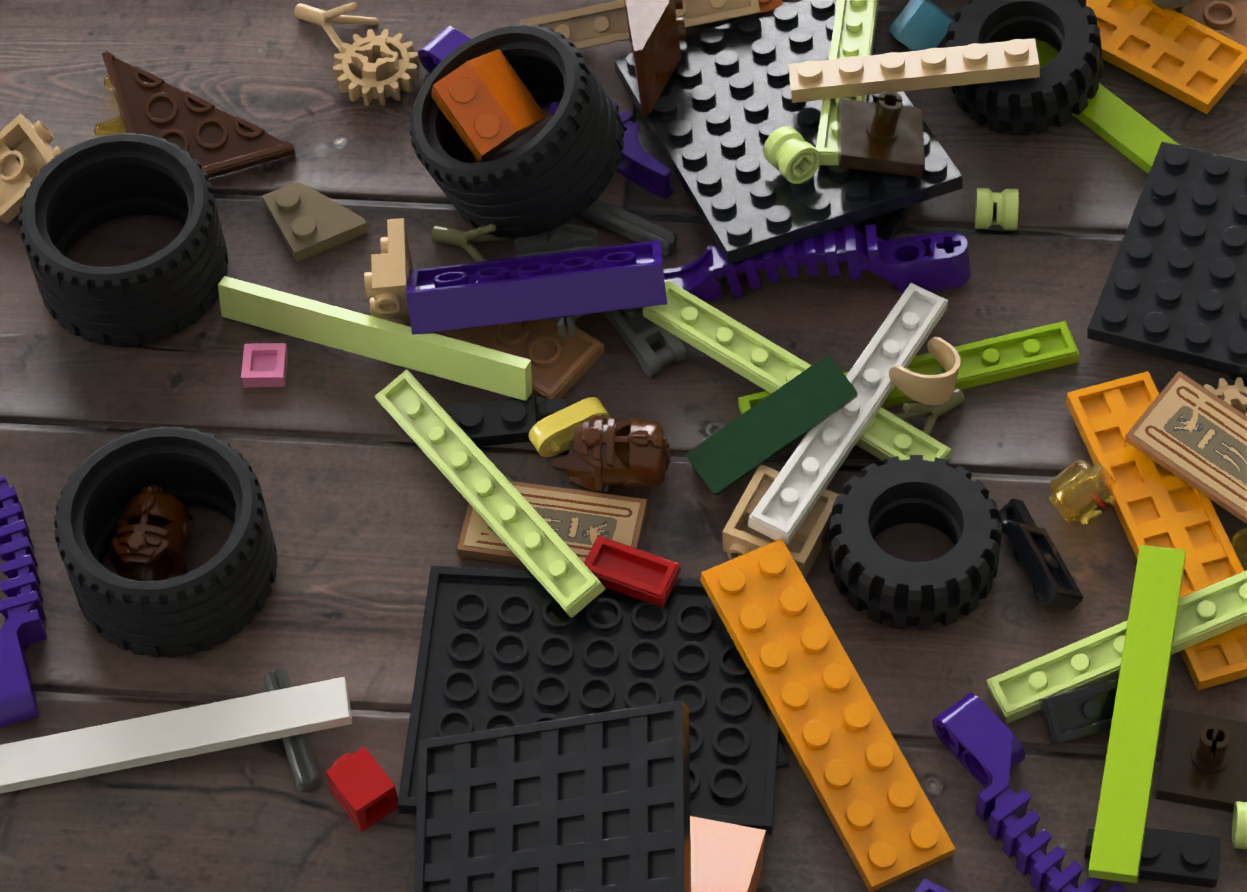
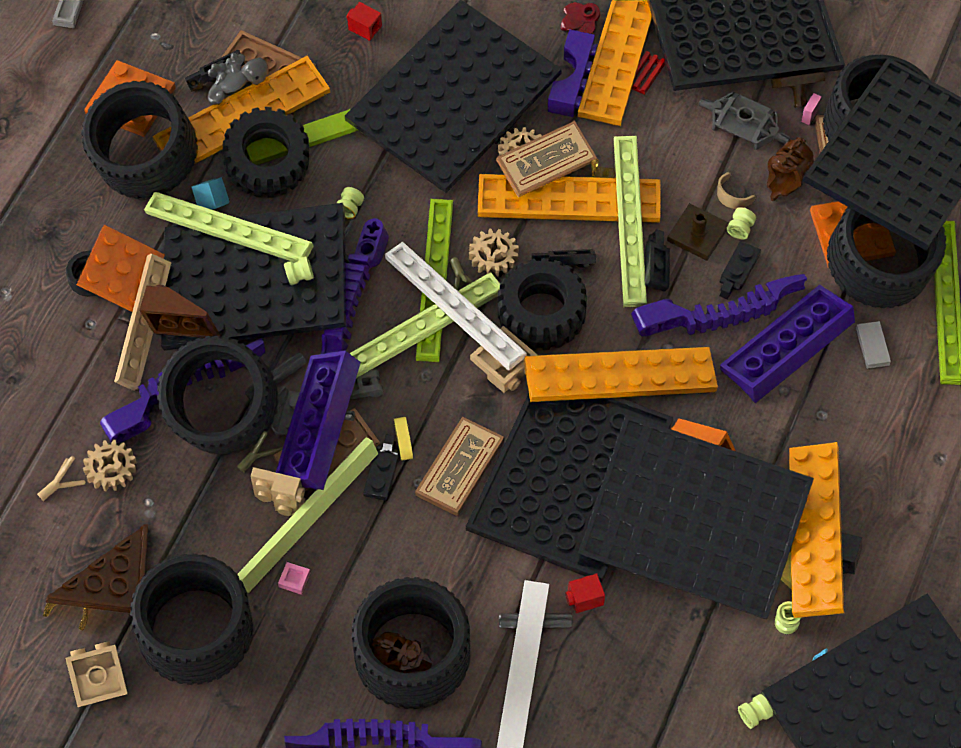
camera: 75 degrees left, 5 degrees up
(311, 220) = (201, 530): dark tan wing -> none
(487, 104) = (212, 400): orange slope -> none
(490, 494) = (430, 486): yellowish green tile -> none
(616, 454) = (433, 420): reddish brown helmet -> none
(632, 571) = (508, 434): red tile -> none
(771, 425) = (452, 341): dark green panel -> none
(880, 136) = (306, 227): dark brown tile -> none
(914, 70) = (266, 199): tan plate -> none
(930, 388) = (449, 254): tan helmet -> none
(997, 443) = (487, 258): none -> tan gear
(1082, 492) = (539, 225): clear yellow head -> none
(1137, 715) = (673, 243): lime tile -> none

